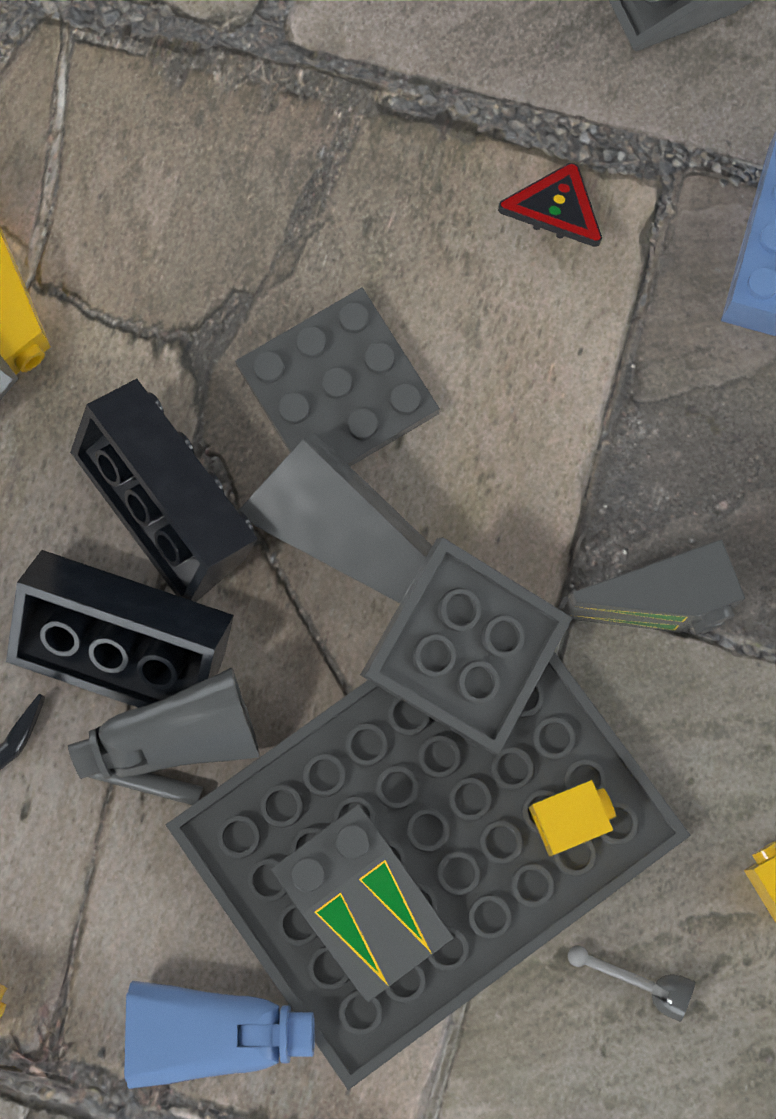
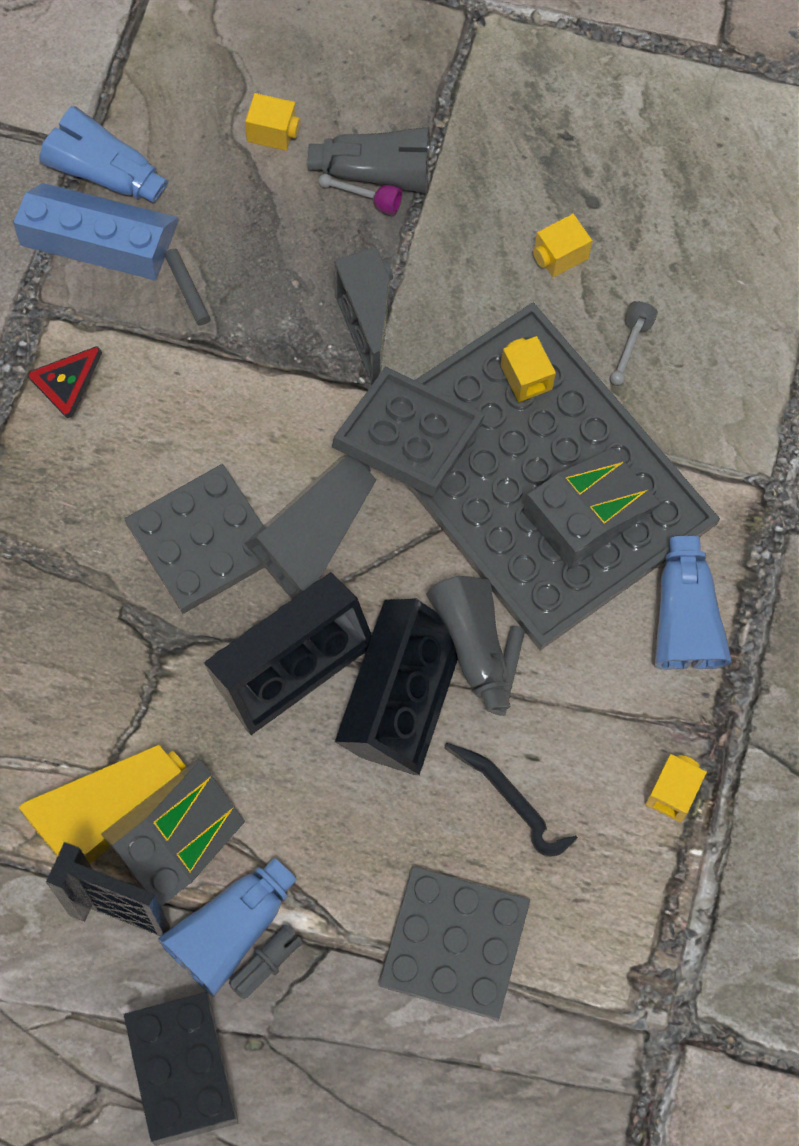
camera: 95 degrees left, 10 degrees down
(708, 359) = (187, 287): none -> dark grey piece

